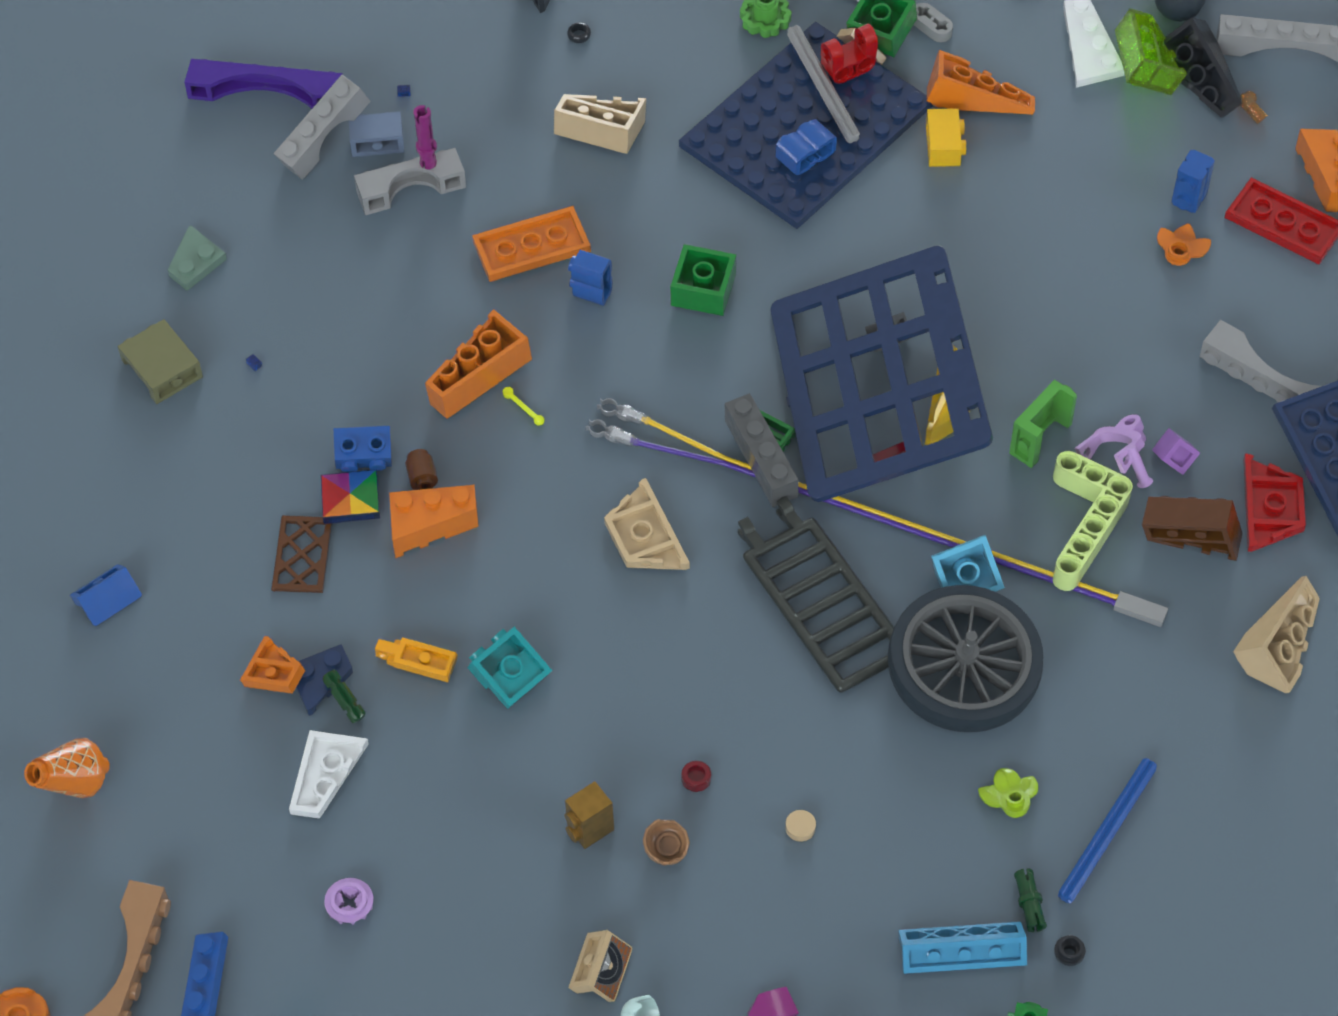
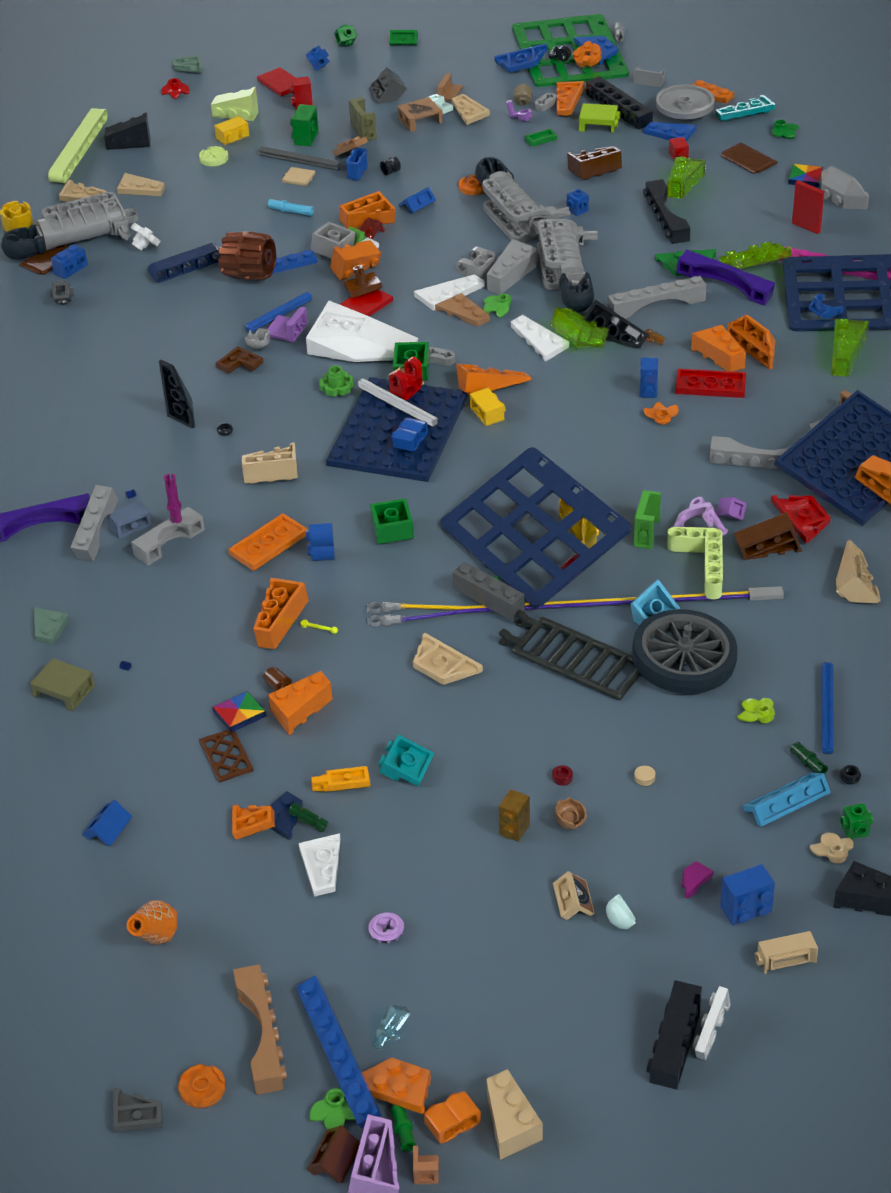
camera: 25 degrees left, 15 degrees down
(362, 448) = (232, 680): blue brick -> none

